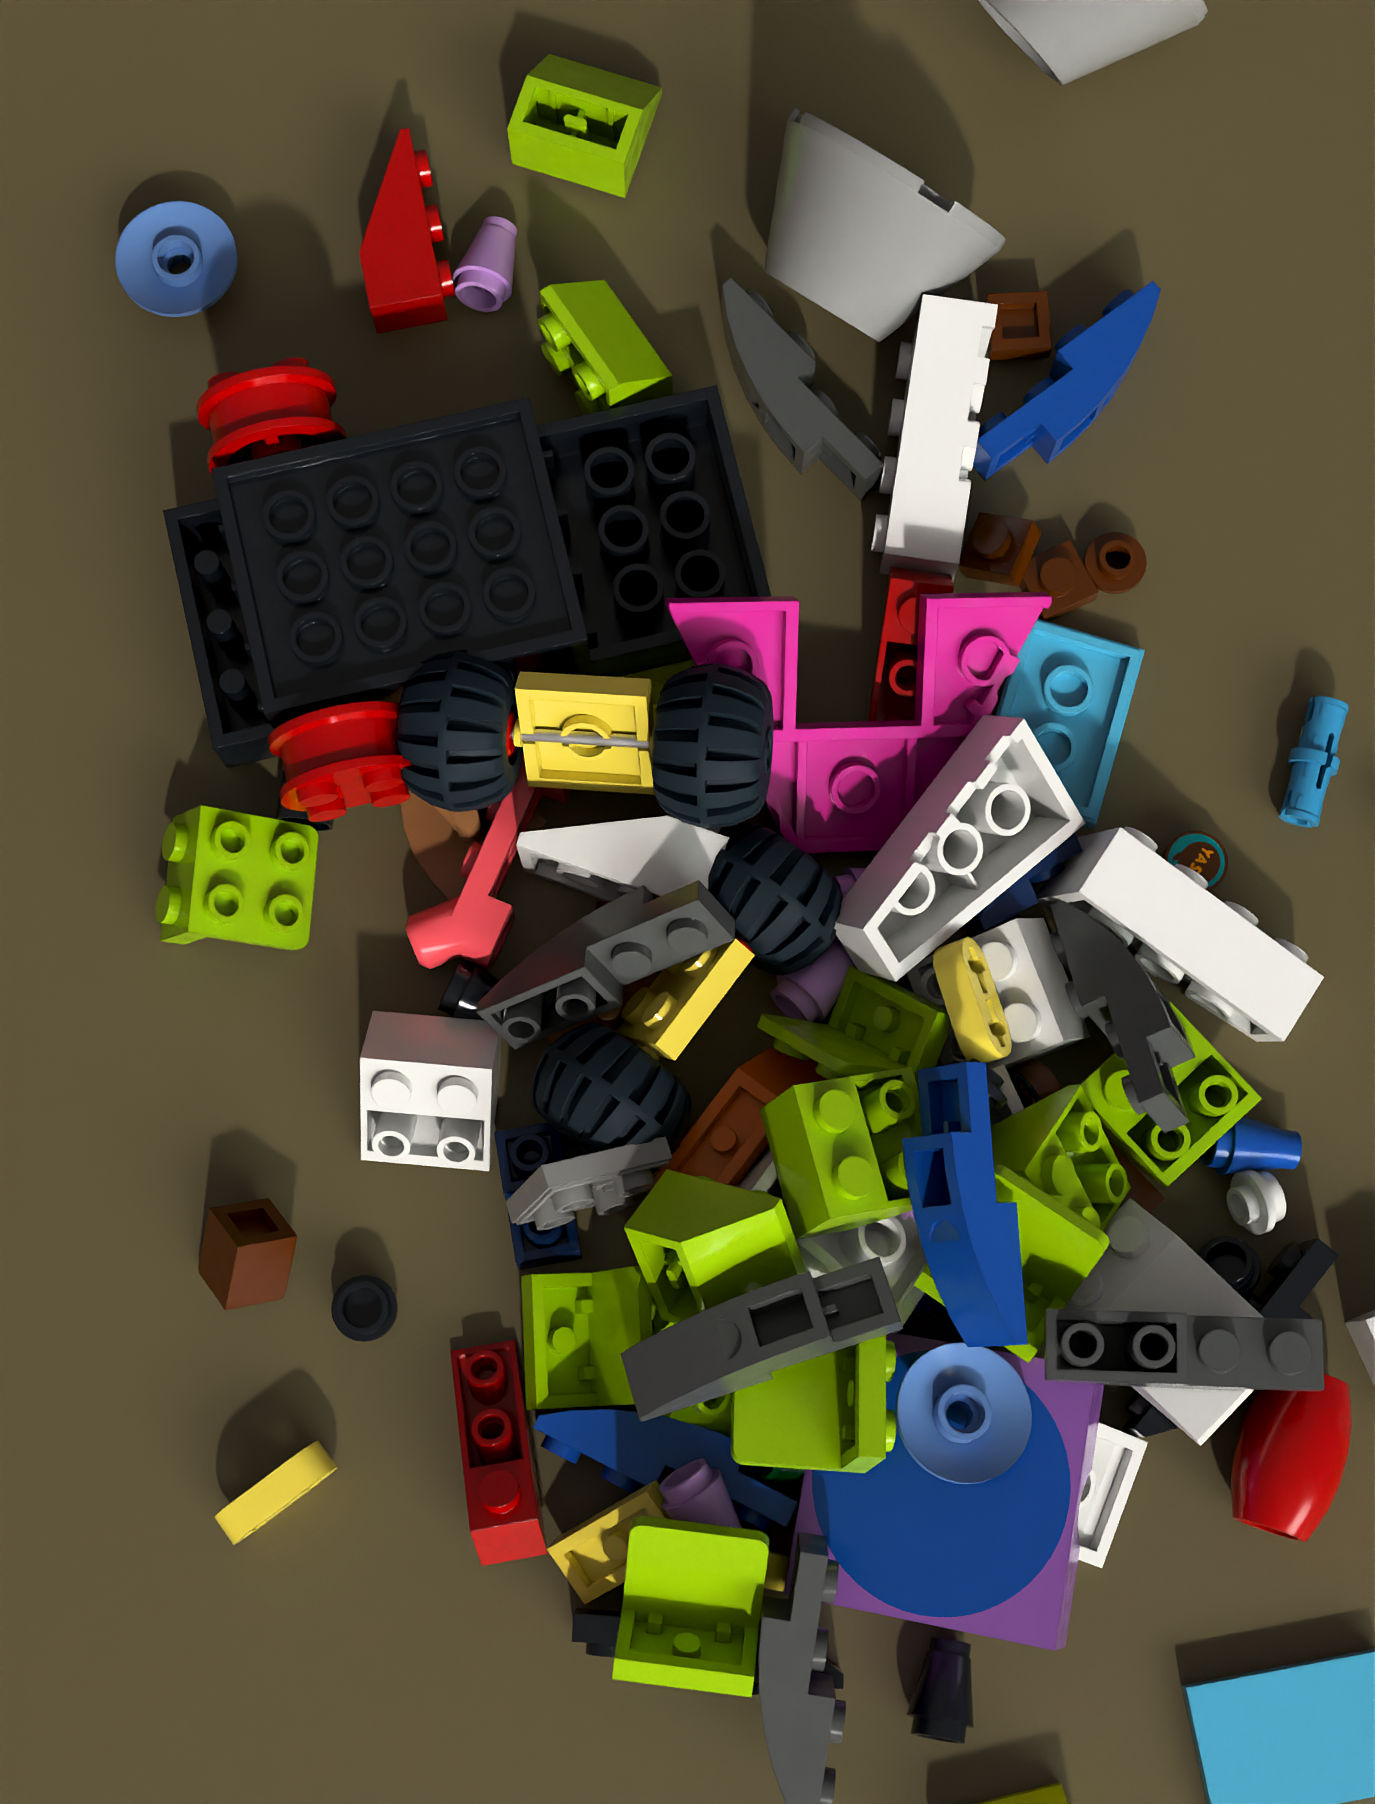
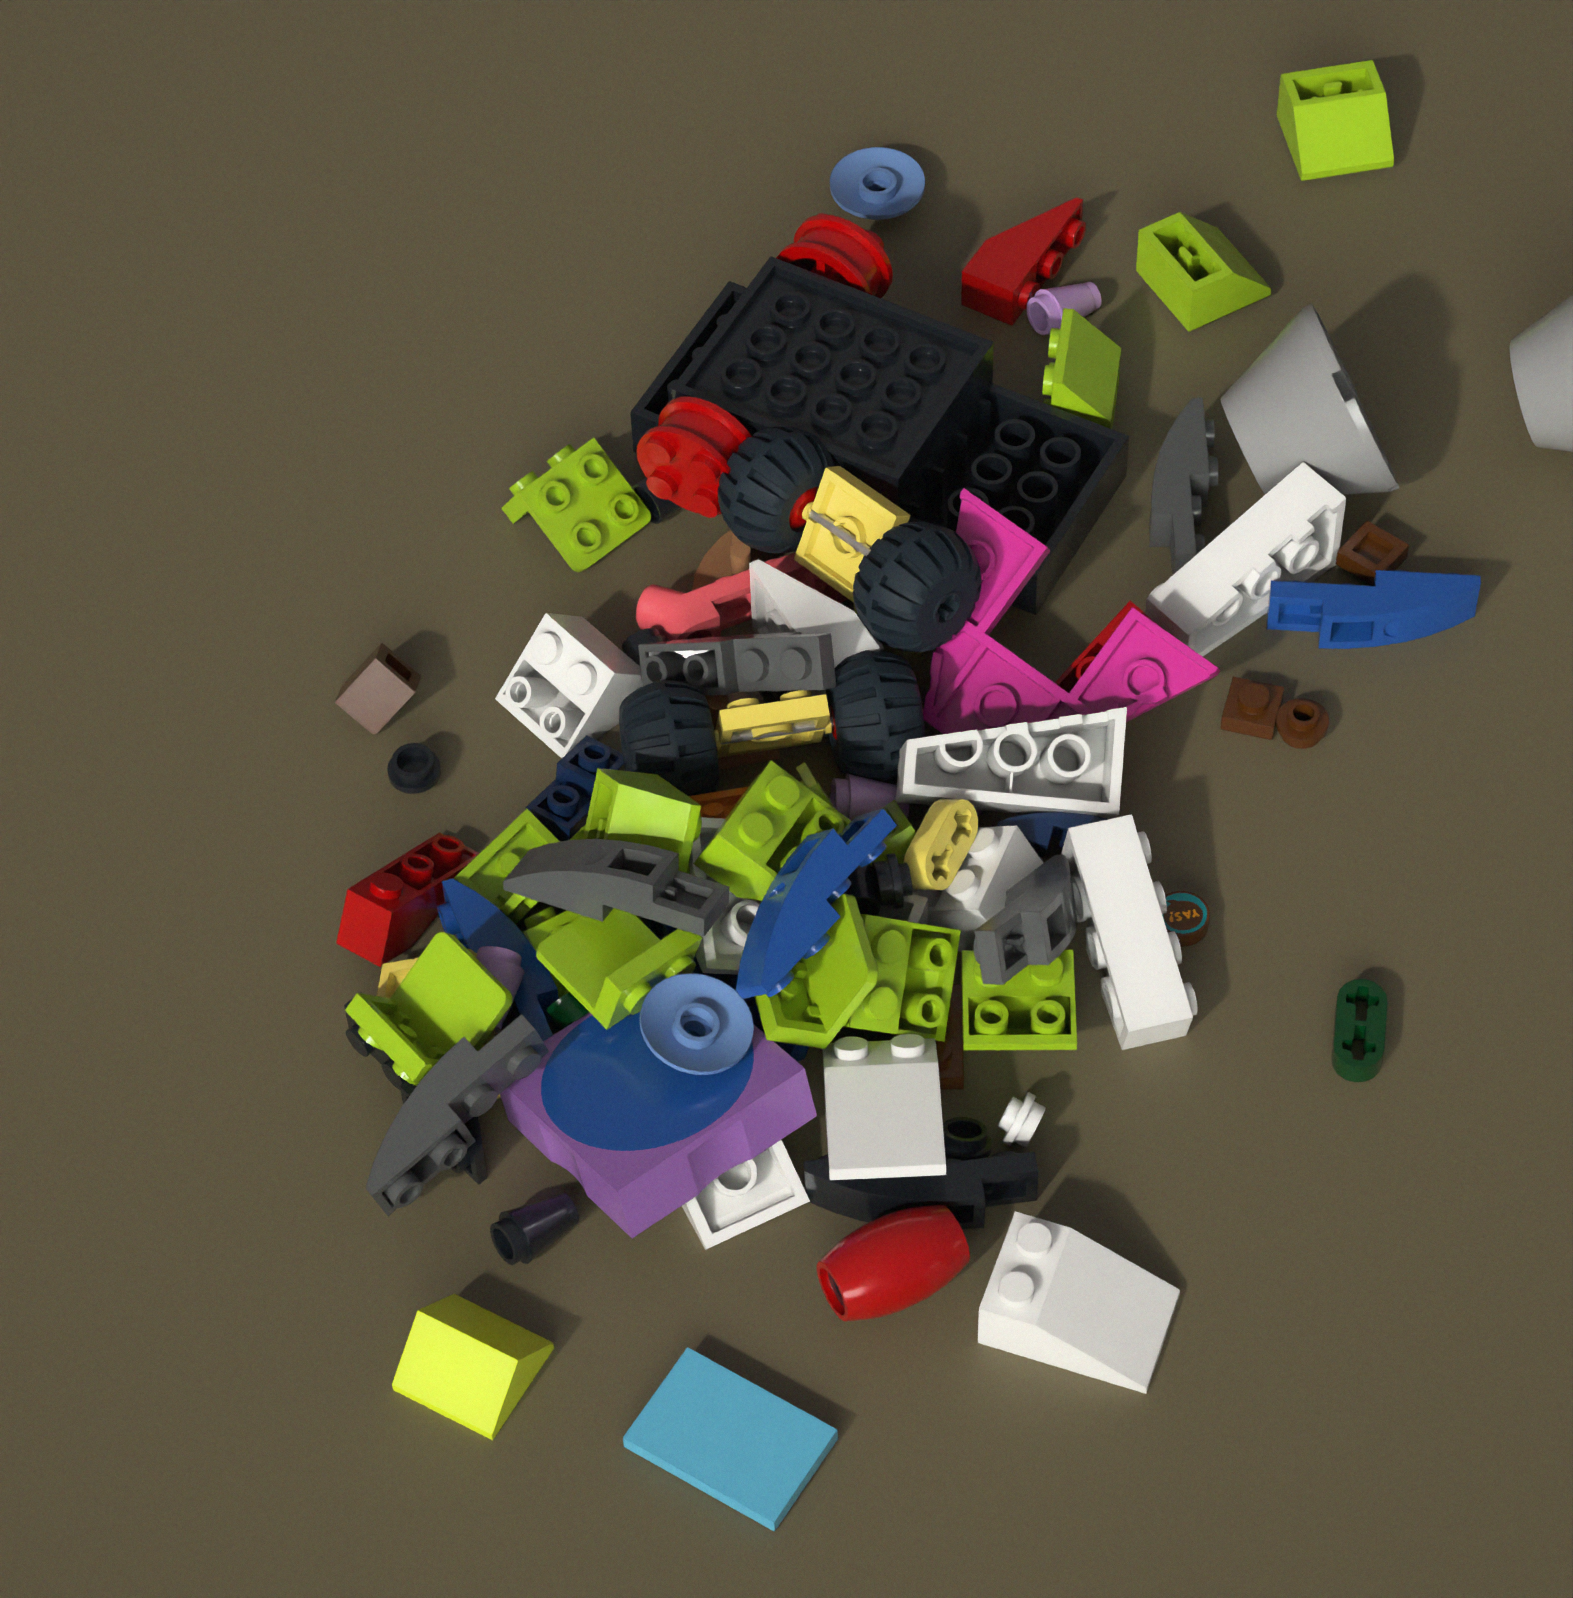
camera: 45 degrees right, 25 degrees down
(275, 1492) = (262, 817): light yellow beam -> none
(595, 1179) = (599, 745): light grey tile -> none
(999, 549) = (1234, 657): reddish brown plate -> none
(1076, 702) = (1188, 778): medium azure tile -> none
(1183, 1350) = (859, 1093): dark grey slope -> none
(1253, 1147) = (1054, 1089): blue cone -> none
(1313, 761) = (1293, 933): dark azure pin -> none

